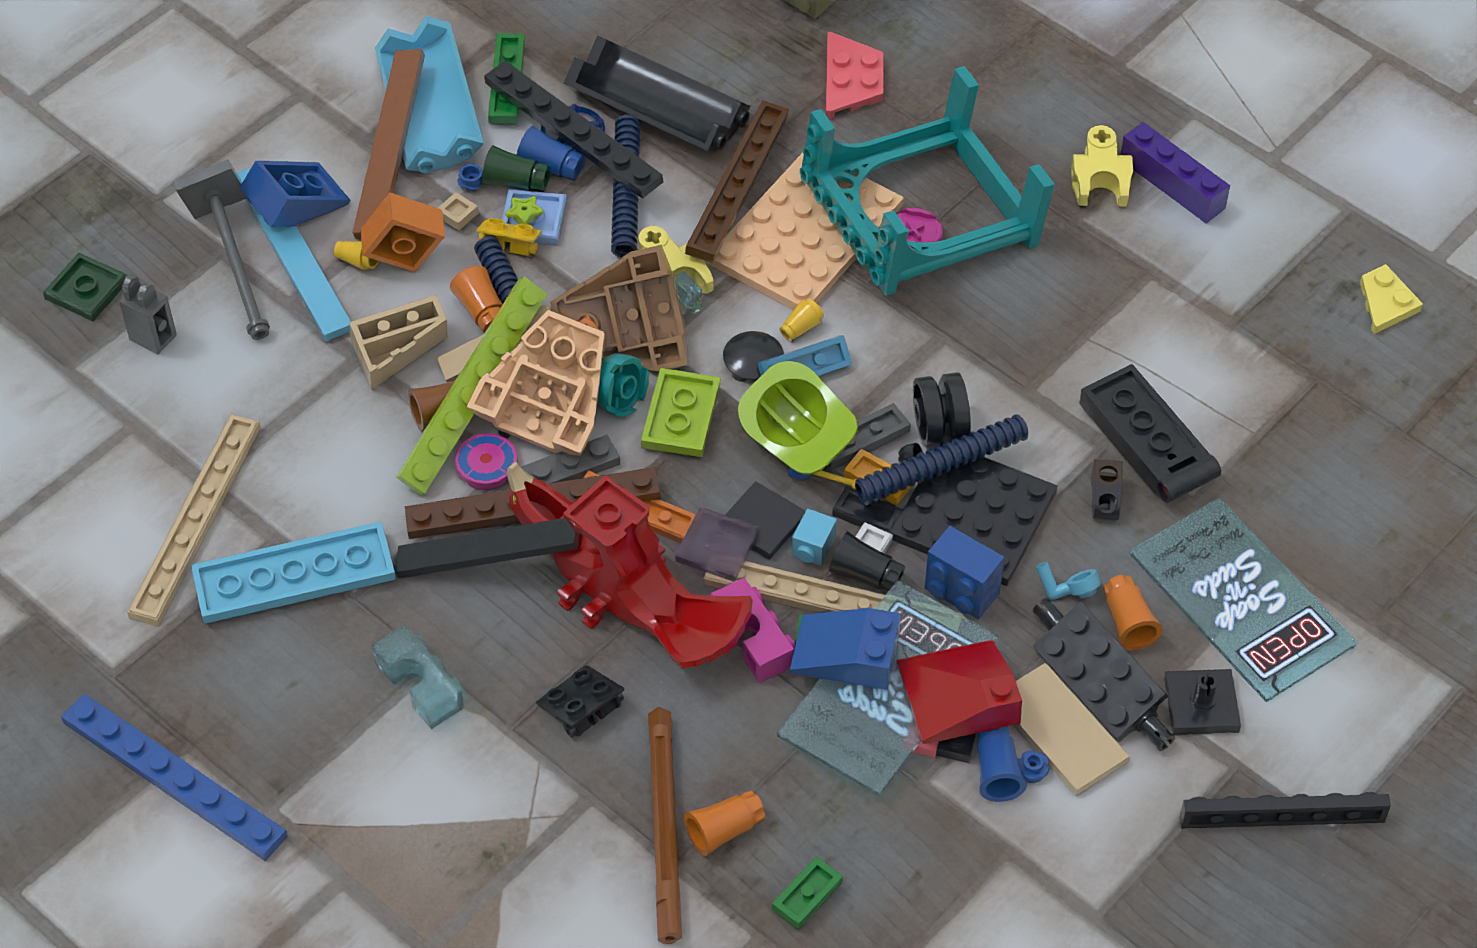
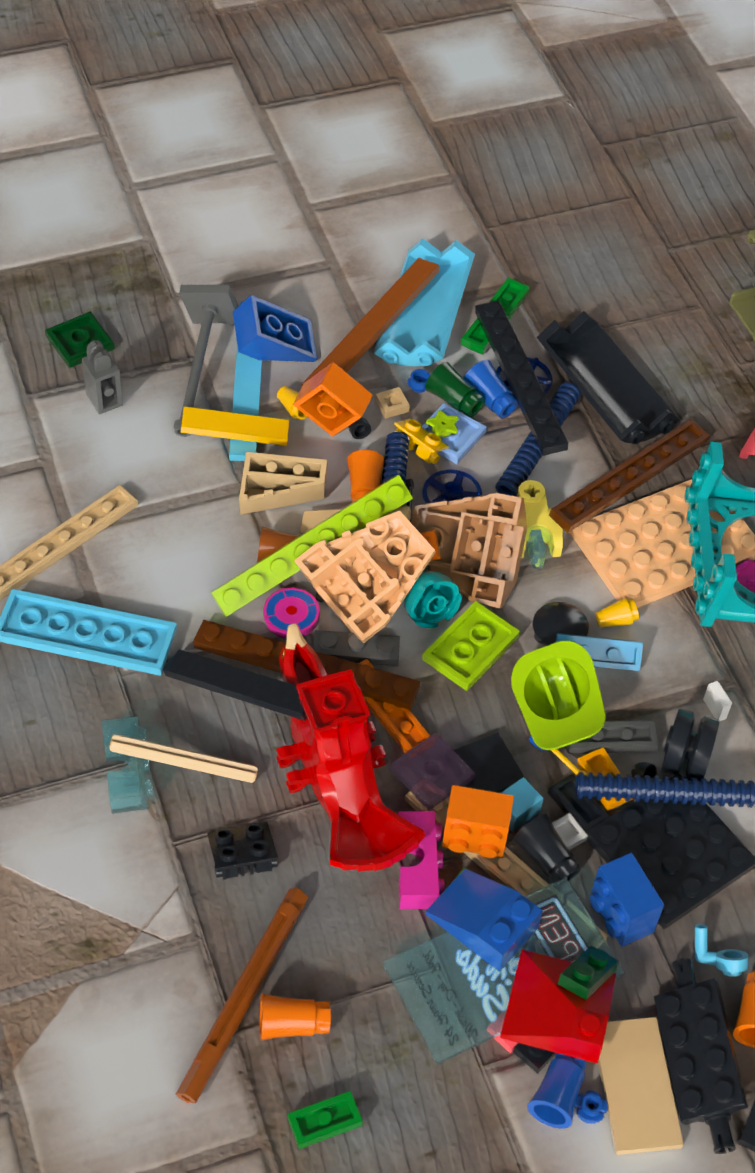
camera: 25 degrees right, 0 degrees up
(314, 303) = (235, 426): none -> yellow tile
(441, 252) = (360, 428): none -> black hinge
(474, 642) = (183, 758): none -> tan axle
(569, 273) = (451, 490): none -> clear blue wheel
(792, 566) = (477, 821): none -> orange brick
(939, 358) = (717, 701): none -> white tile
(970, 648) = (588, 972): none -> dark green plate

